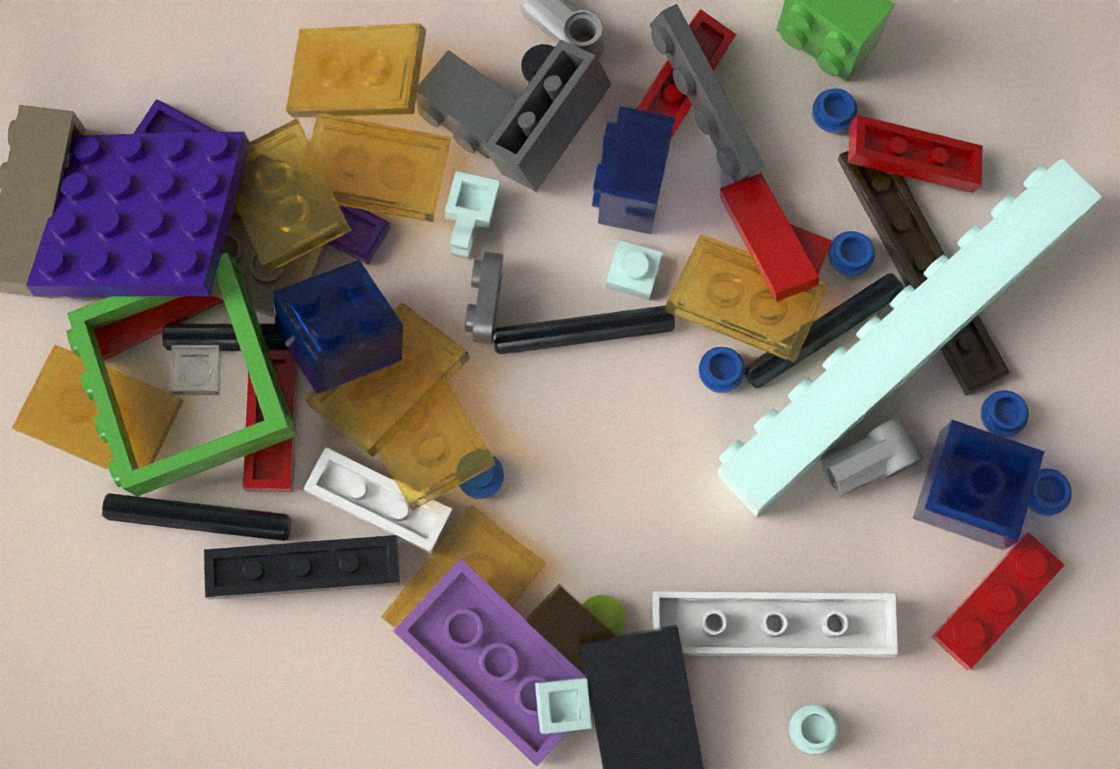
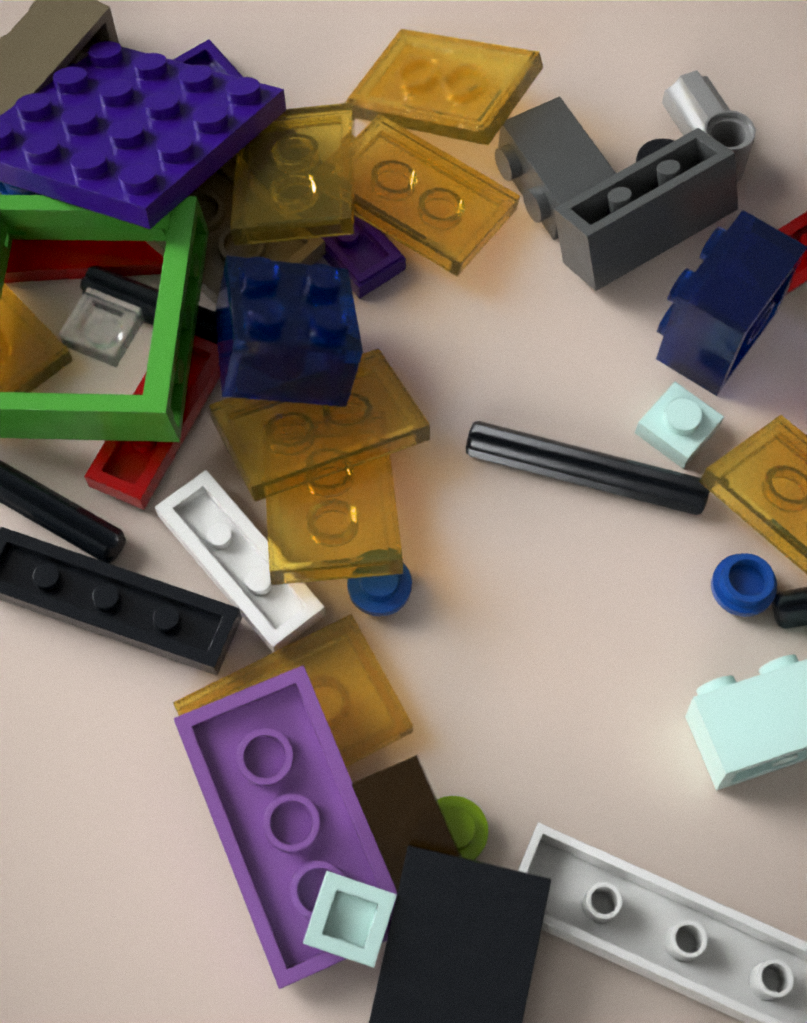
camera: 25 degrees right, 10 degrees down
(470, 205) = (508, 274): light aqua plate -> none
(487, 278) = (492, 365): flat silver plate -> none

